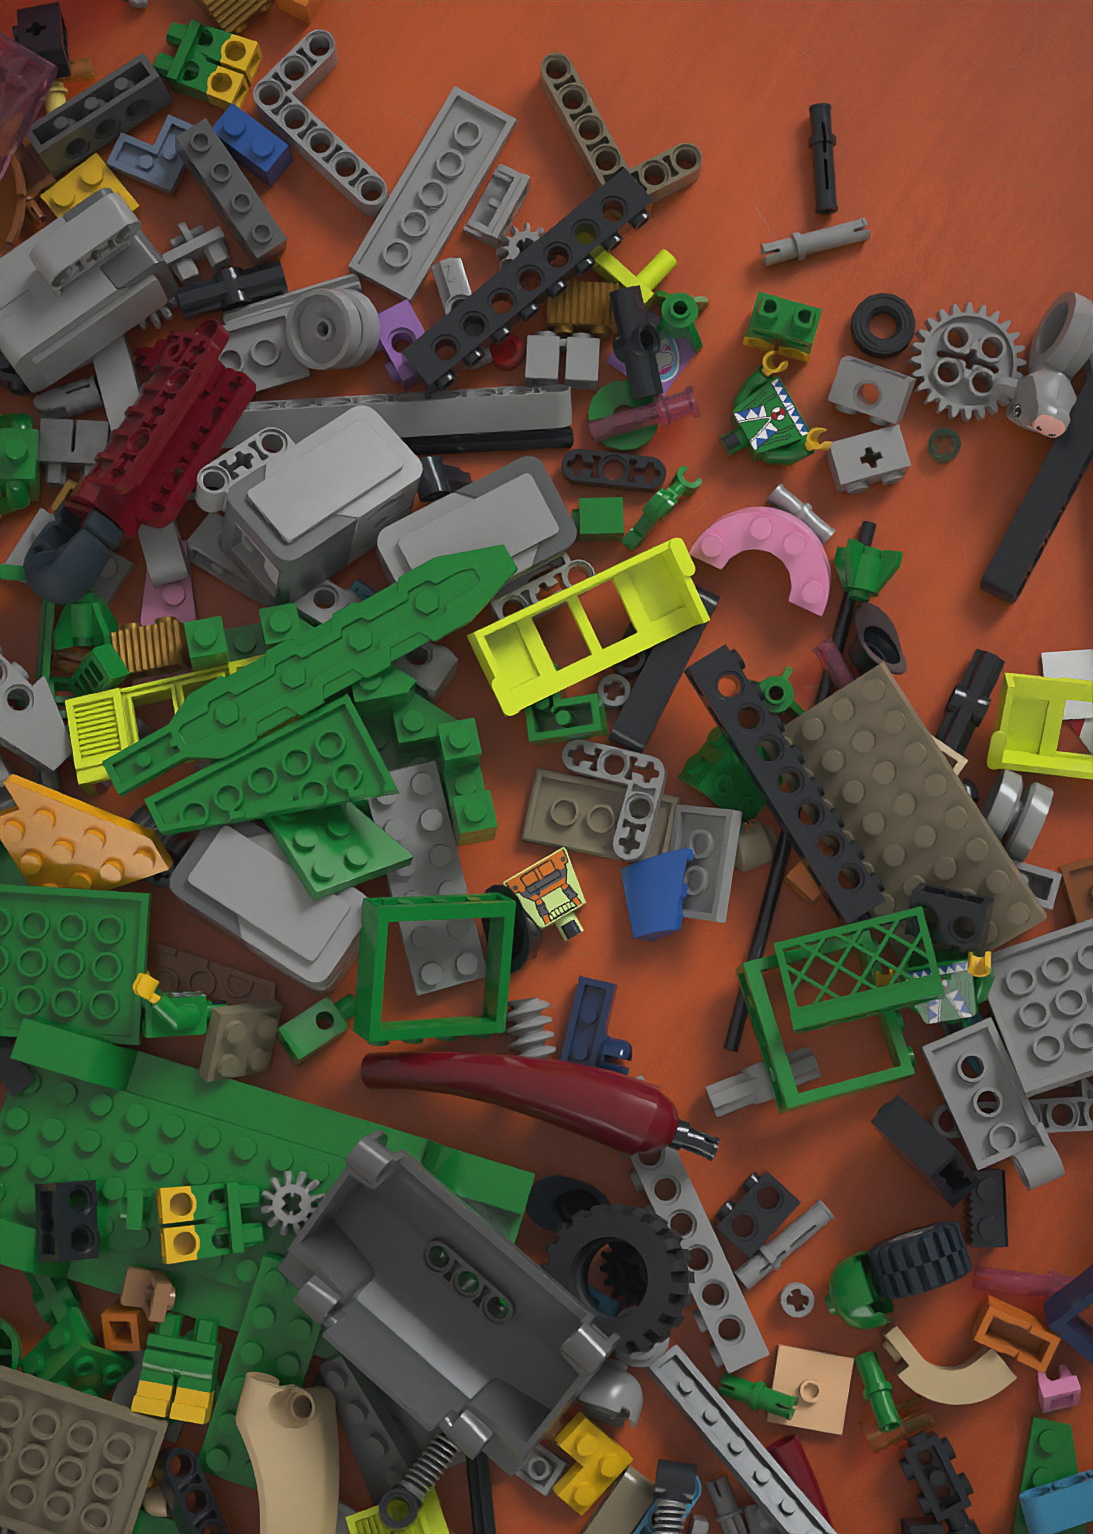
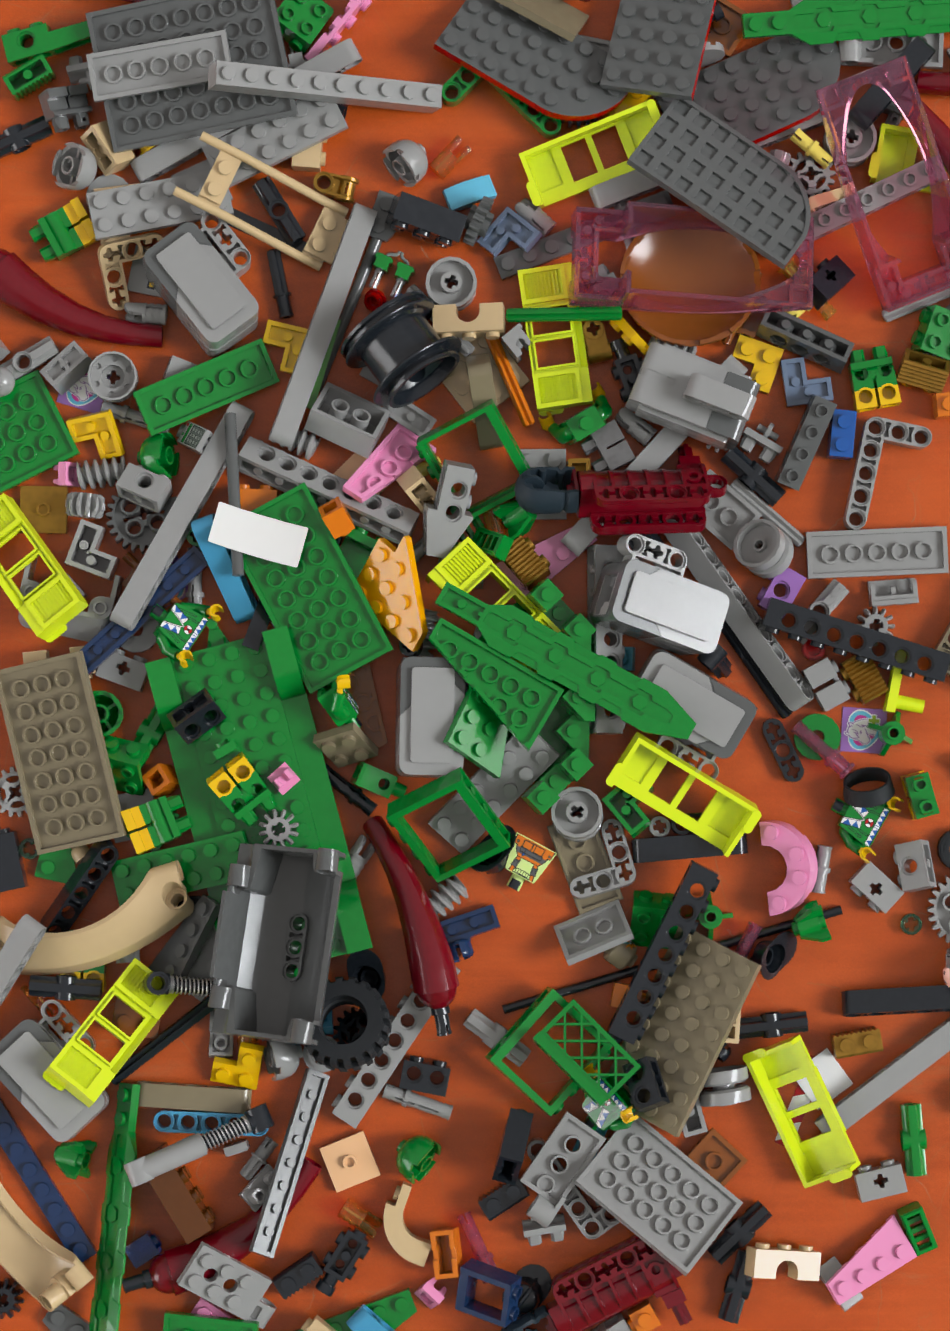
camera: 55 degrees right, 5 degrees up
(148, 1290) = (186, 781): medium nougat bracket -> none
(230, 1153) = (283, 778): none -> bright pink tile
(311, 1074) = (351, 792): none -> black pin
(408, 1122) = (359, 861): none -> light grey hinge
(546, 799) = (575, 828): none -> light grey wheel
(599, 519) = (749, 759): green brick -> none
(636, 342) = (859, 720): black piece -> none
(656, 894) = (562, 918): blue slope -> none
(660, 507) = (777, 789): green piece -> none
(743, 393) = (870, 798): none -> black tyre
(758, 1396) = (329, 1135): green pin -> none
(789, 1308) = (385, 1125): light grey bush -> none
(877, 1392) = (371, 1197): green pin -> none
(920, 1260) = (454, 1178): black wheel -> none
(1055, 1194) = (534, 1230): none -> light grey hips
(1058, 608) = (856, 1042): none -> pearl gold brick

